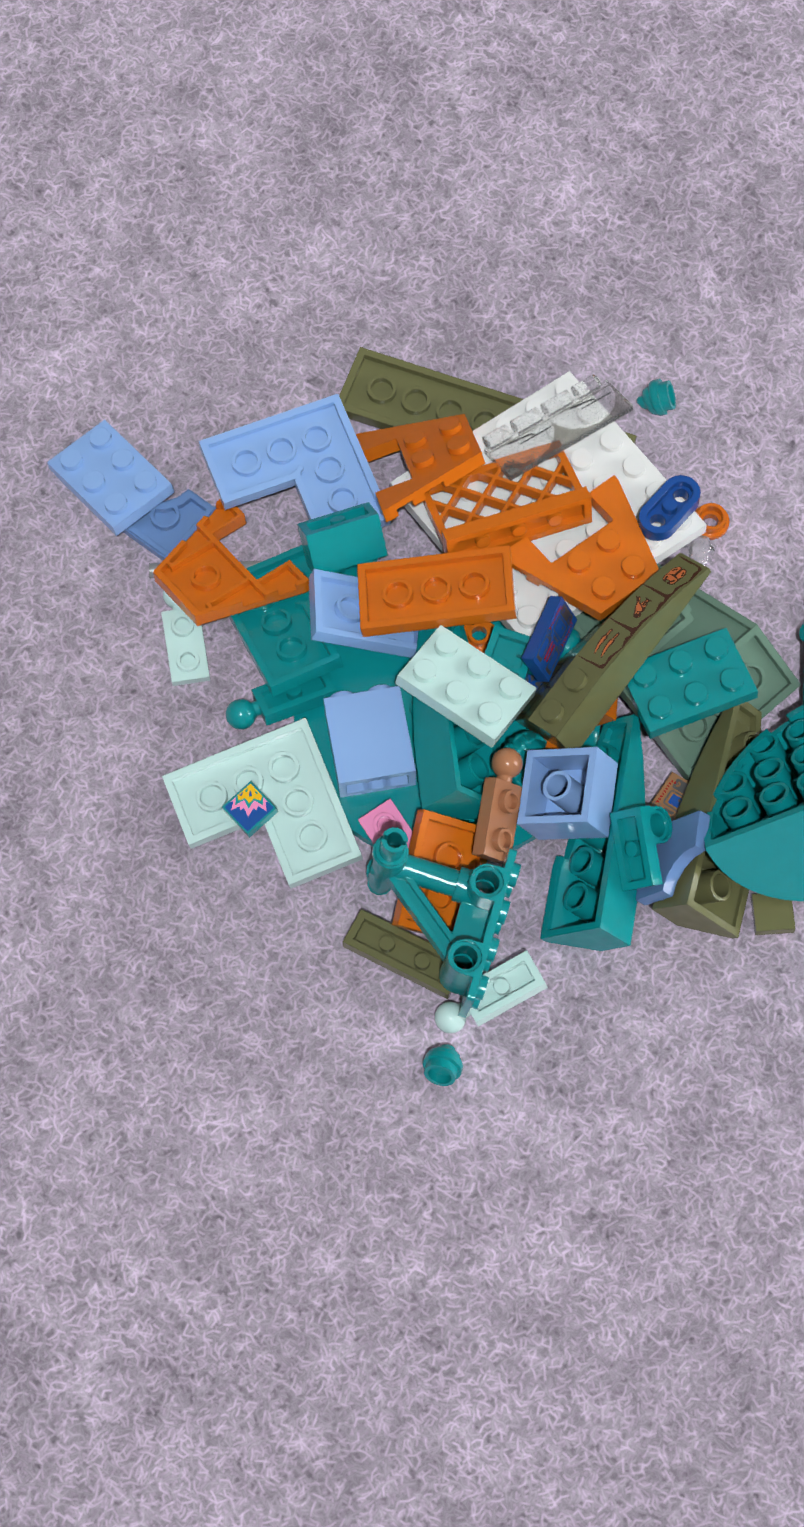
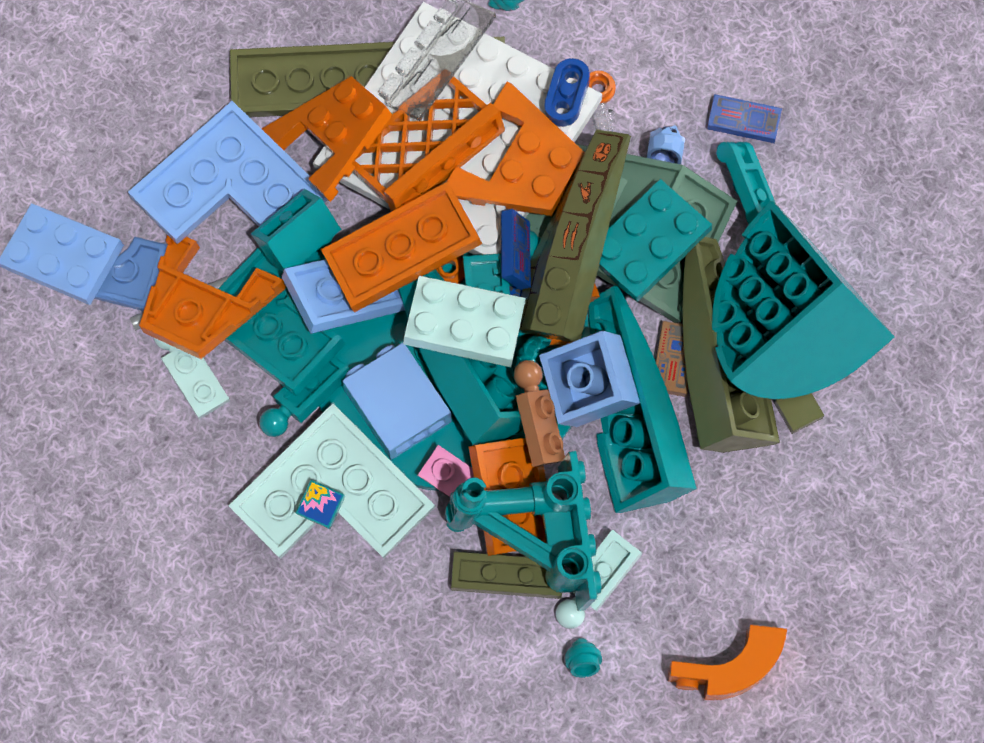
camera: 25 degrees left, 5 degrees up
(594, 1143) = (737, 676): none -> orange arch
(635, 840) = (667, 399): teal plate -> none
(676, 854) = (695, 397): medium blue tile -> none
(752, 601) = (666, 145): none -> light blue rock

